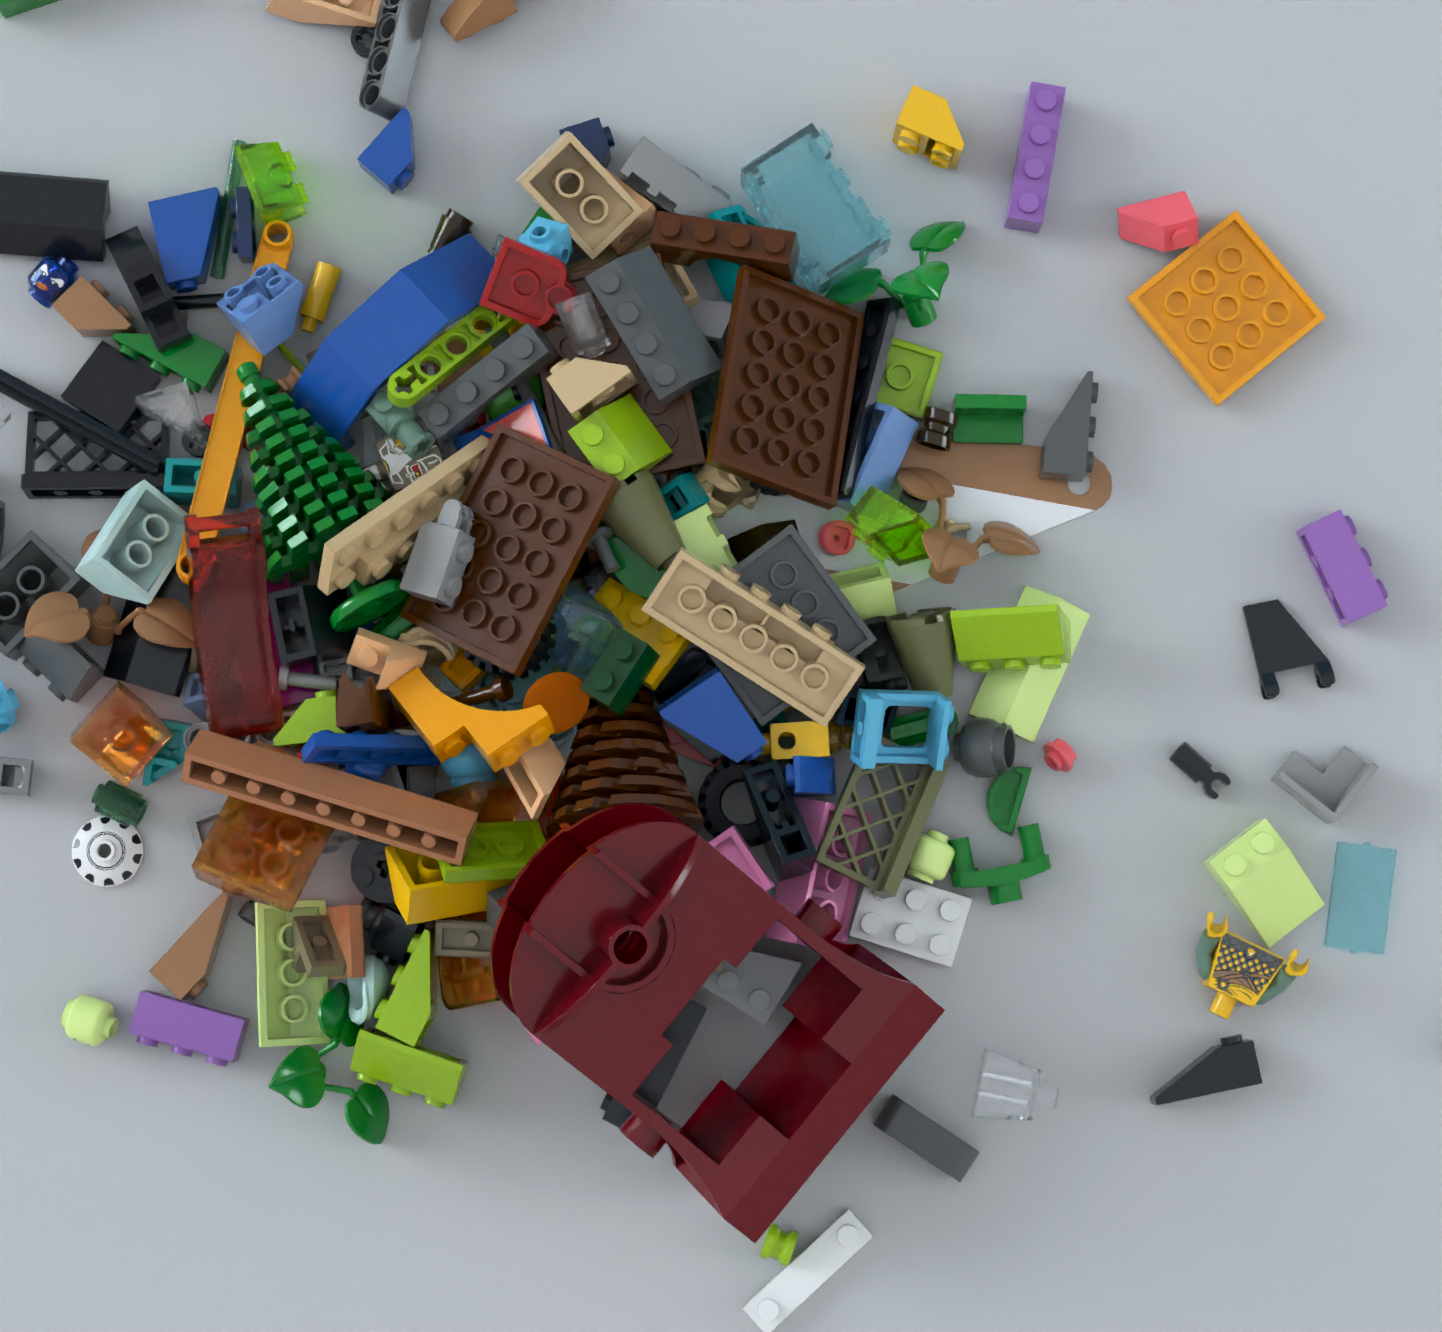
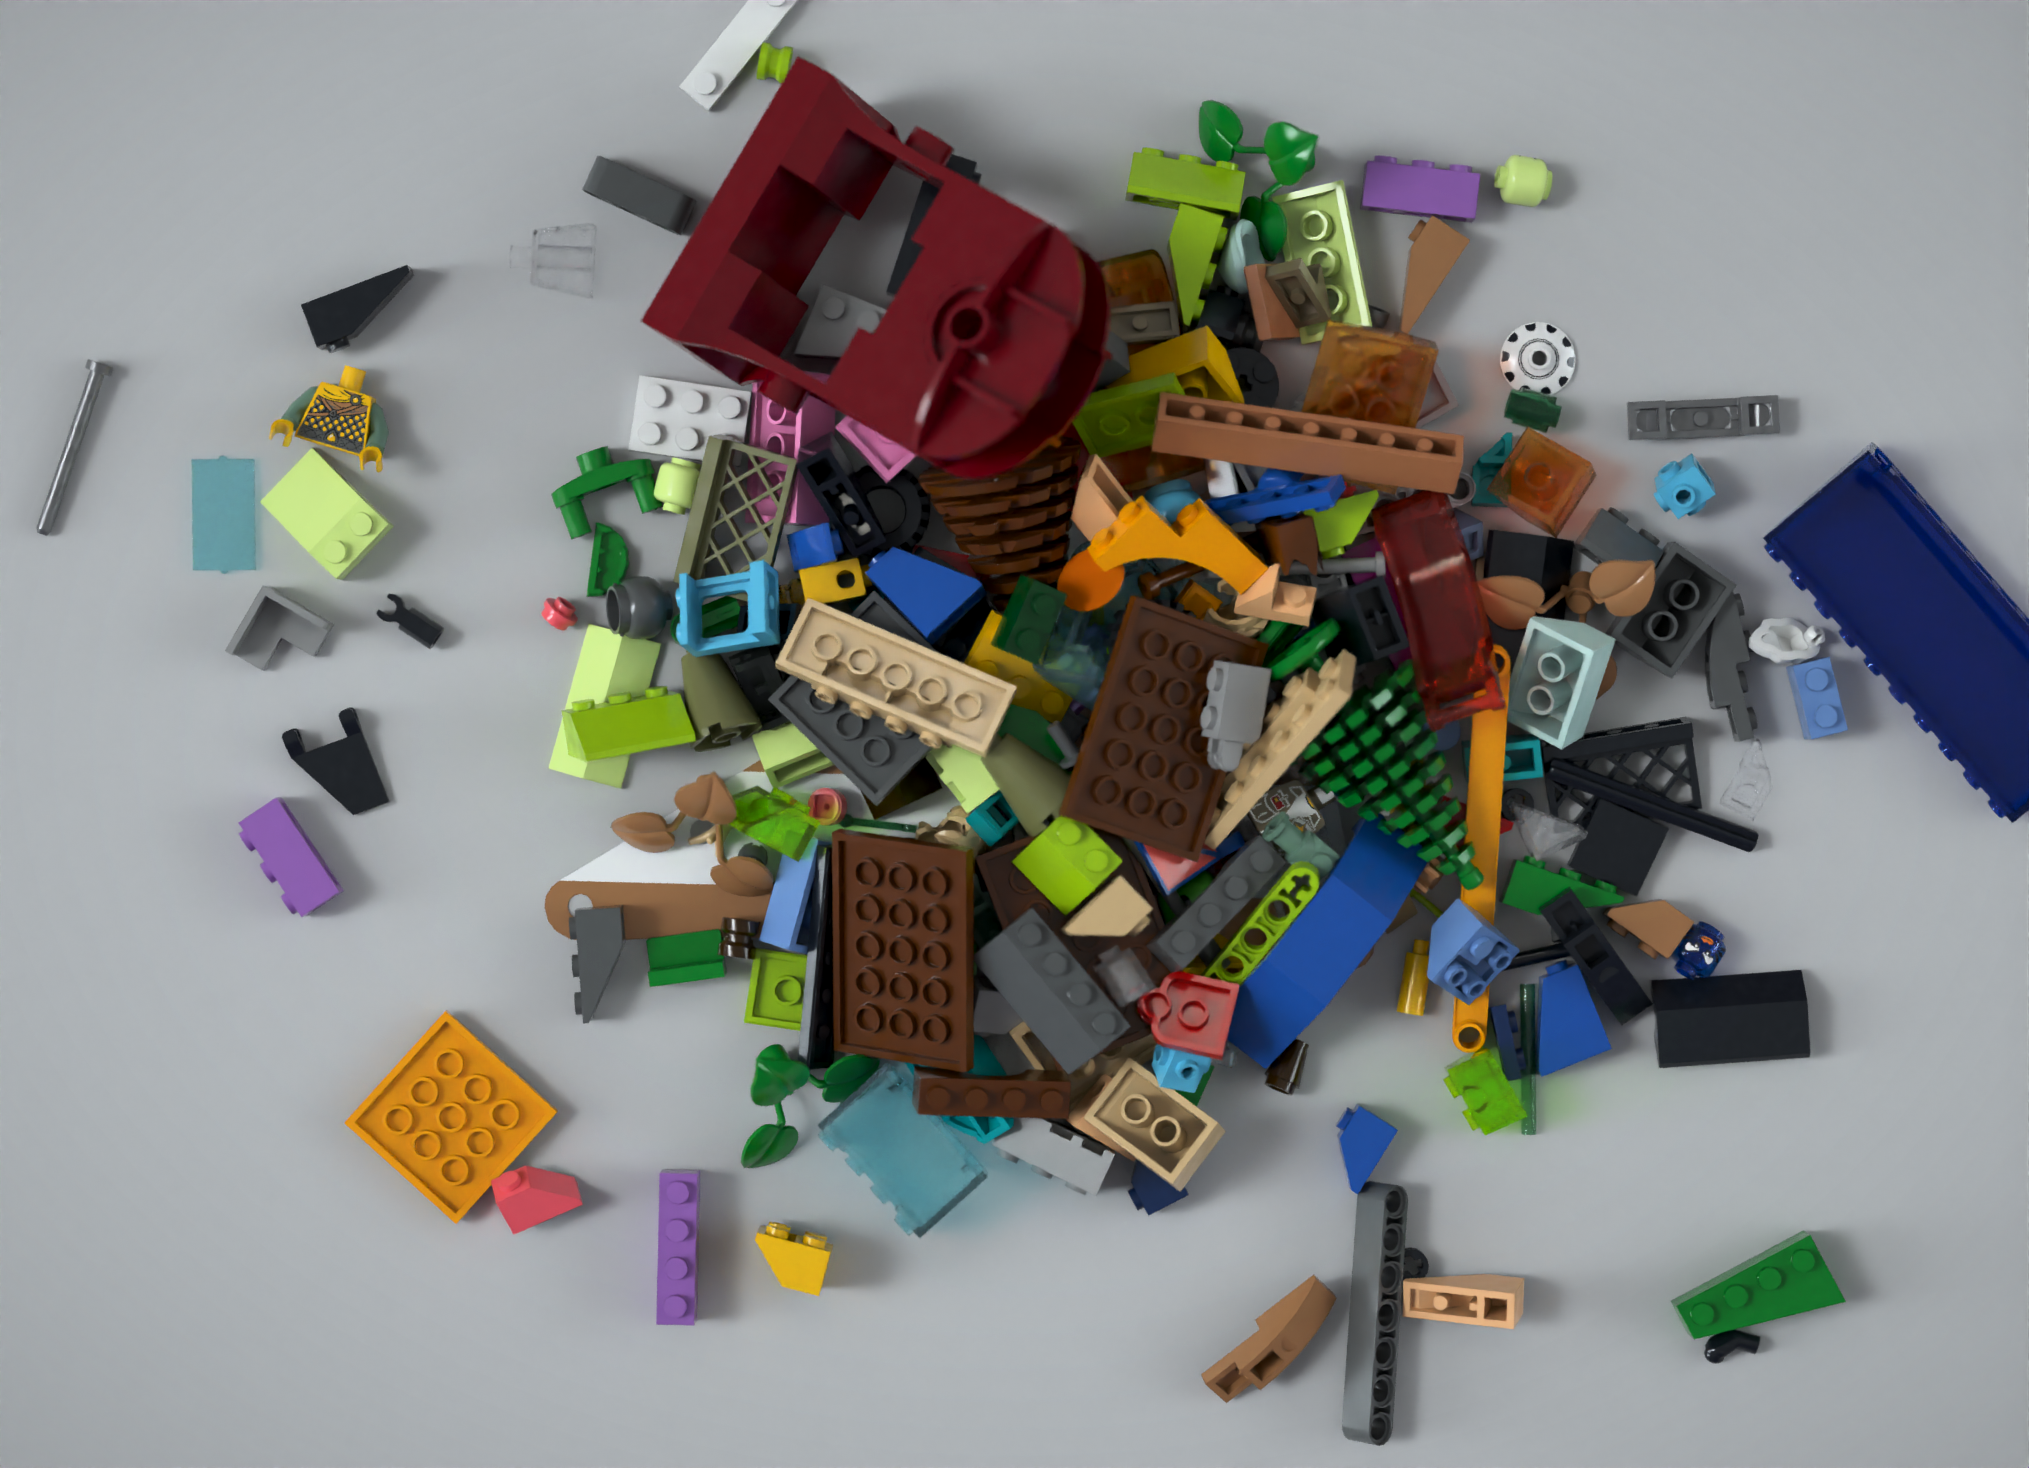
camera: 170 degrees right, 5 degrees up
(818, 522) = (848, 820): none -> clear green hinge

